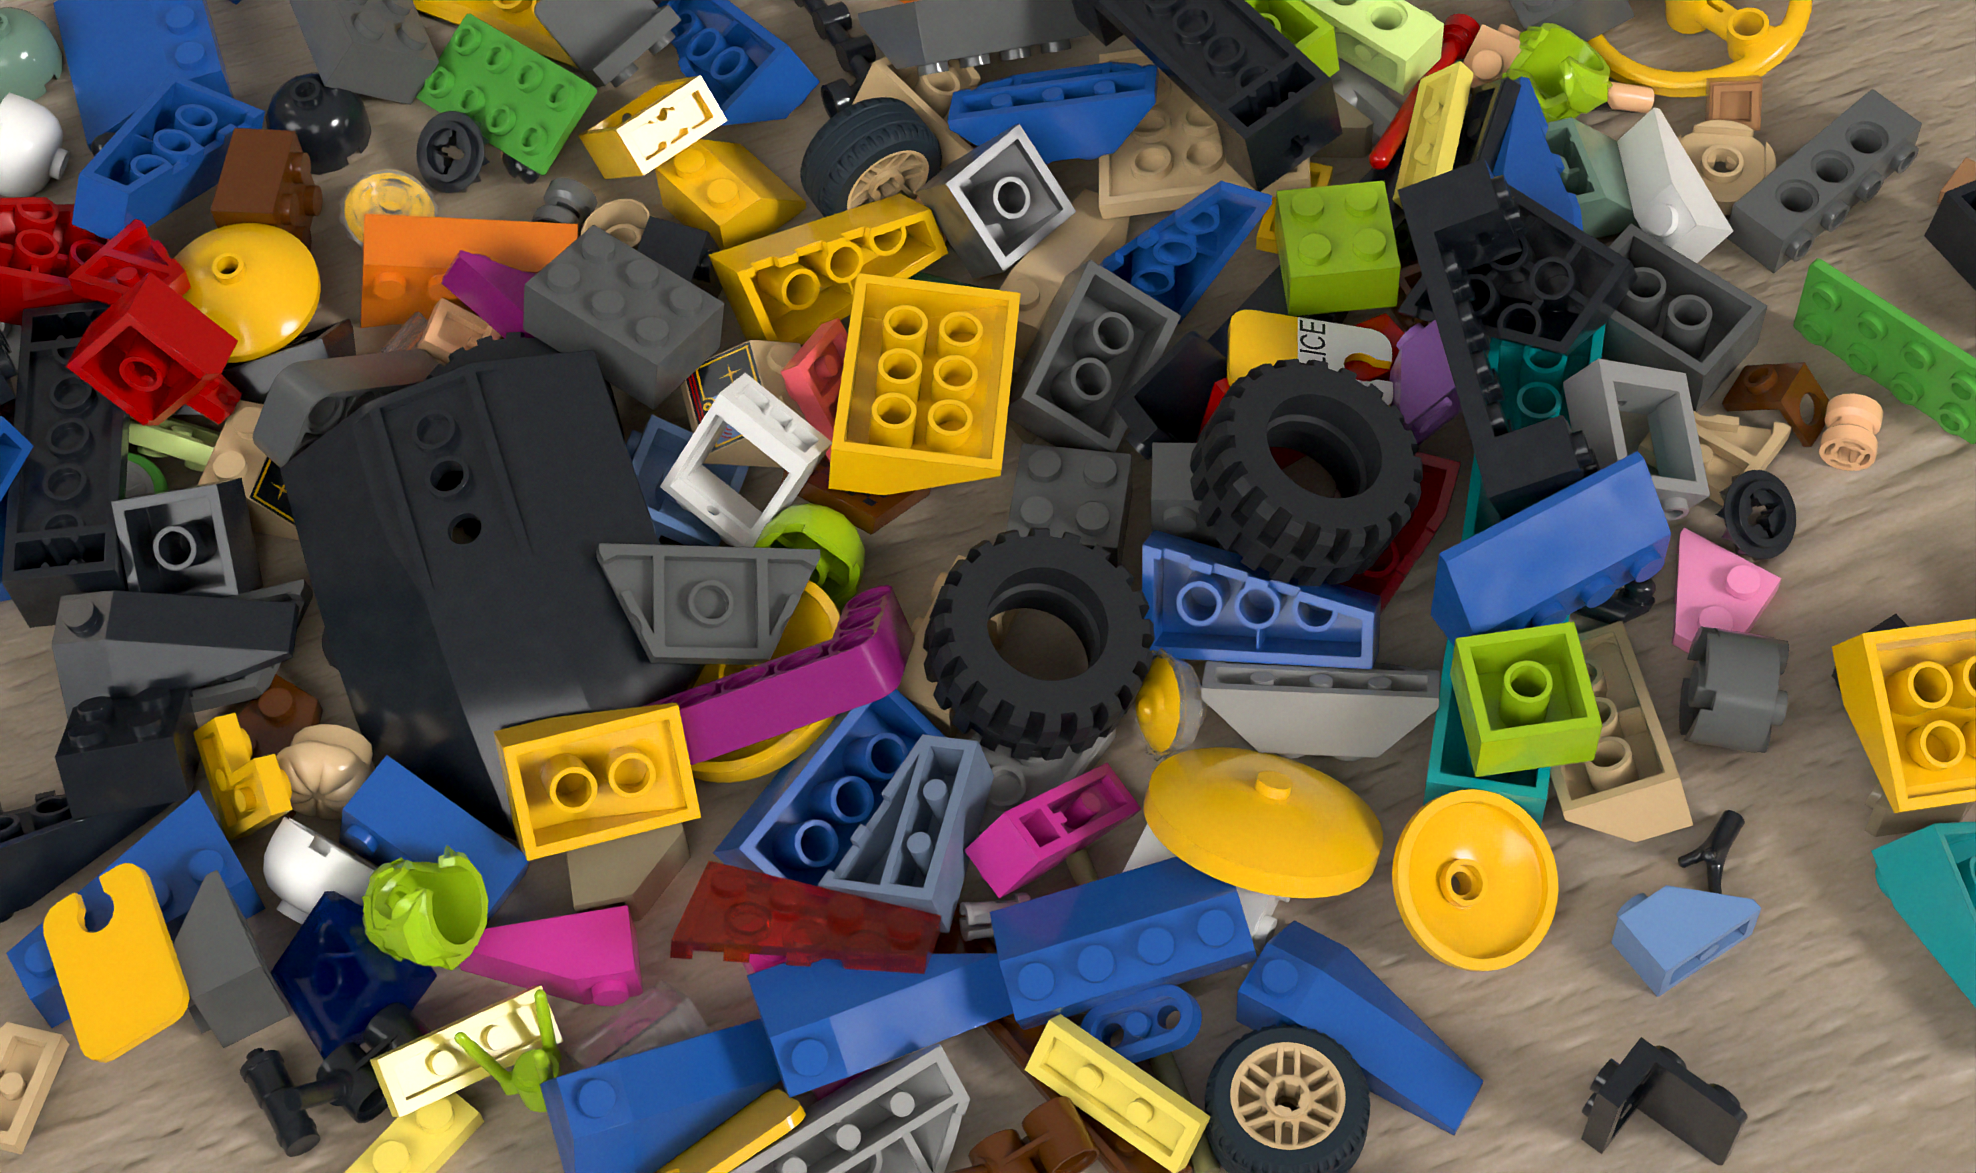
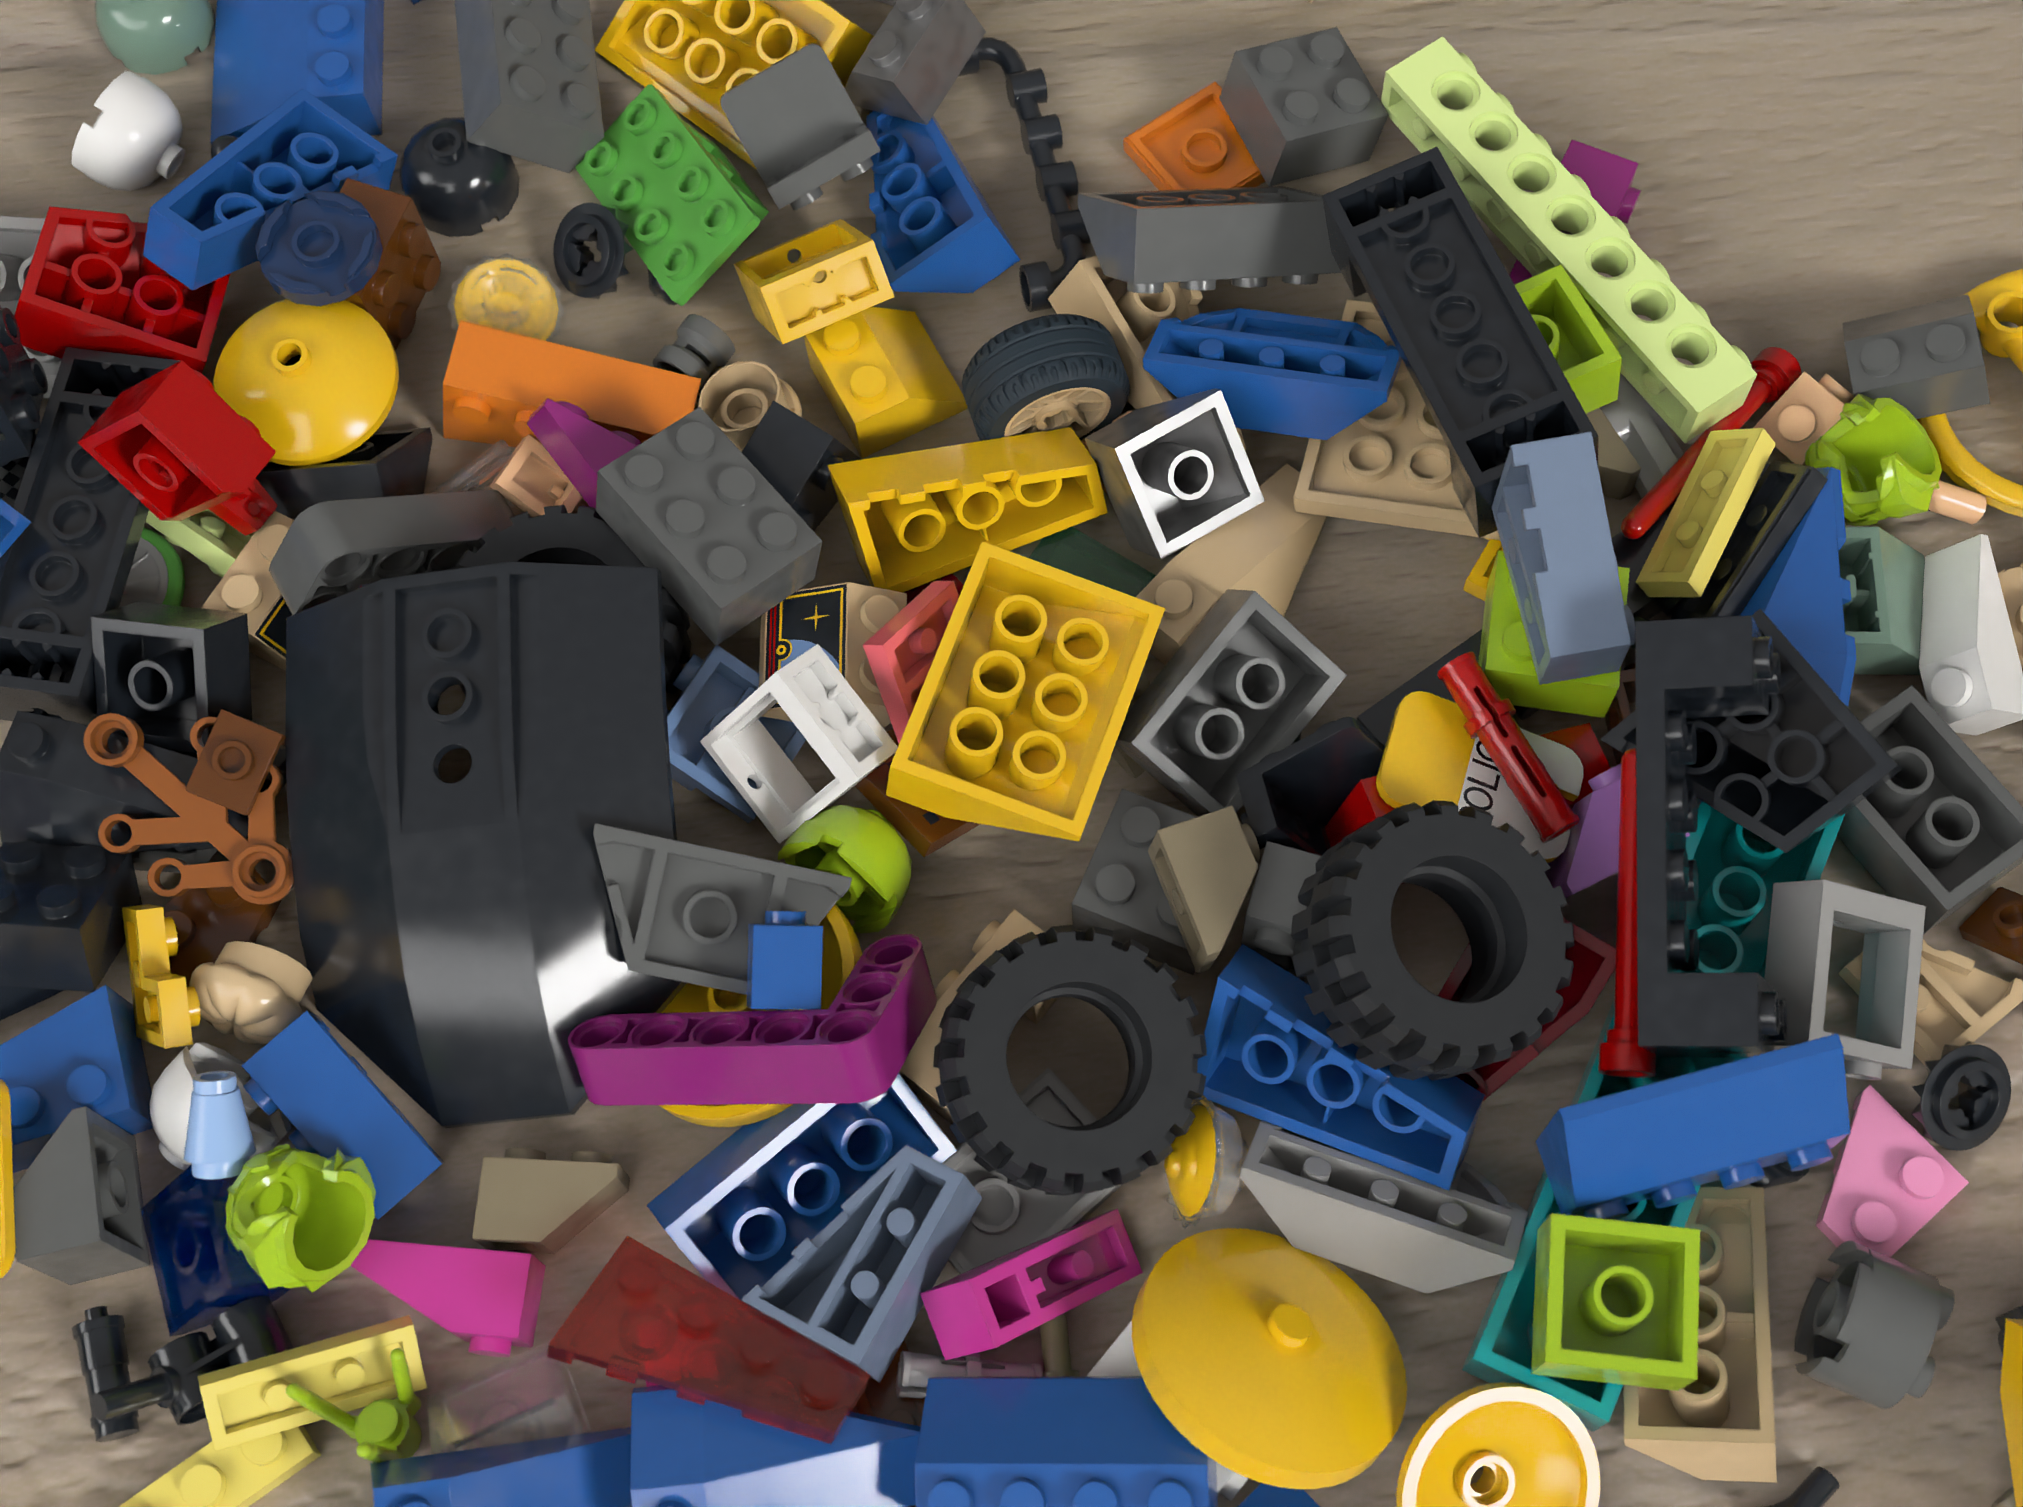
camera: 15 degrees right, 10 degrees up
(124, 263) = (188, 326): red wing -> none
(227, 183) = (319, 248): none -> dark blue tile
(245, 640) = (198, 820): none -> dark orange plant
(268, 586) = (235, 762): none -> reddish brown bracket
(337, 854) = (218, 1127): none -> light blue cone
(596, 777) = (526, 1097): yellow slope -> none
(782, 616) = (784, 962): none -> blue brick
(1108, 481) = (1205, 877): none -> dark tan slope
(1190, 246) = (1369, 597): blue wedge -> none
(1307, 316) = (1507, 746): none -> red pin
(1328, 172) = (1562, 558): none -> sand blue wedge
(1479, 512) = (1621, 1052): none -> red piece

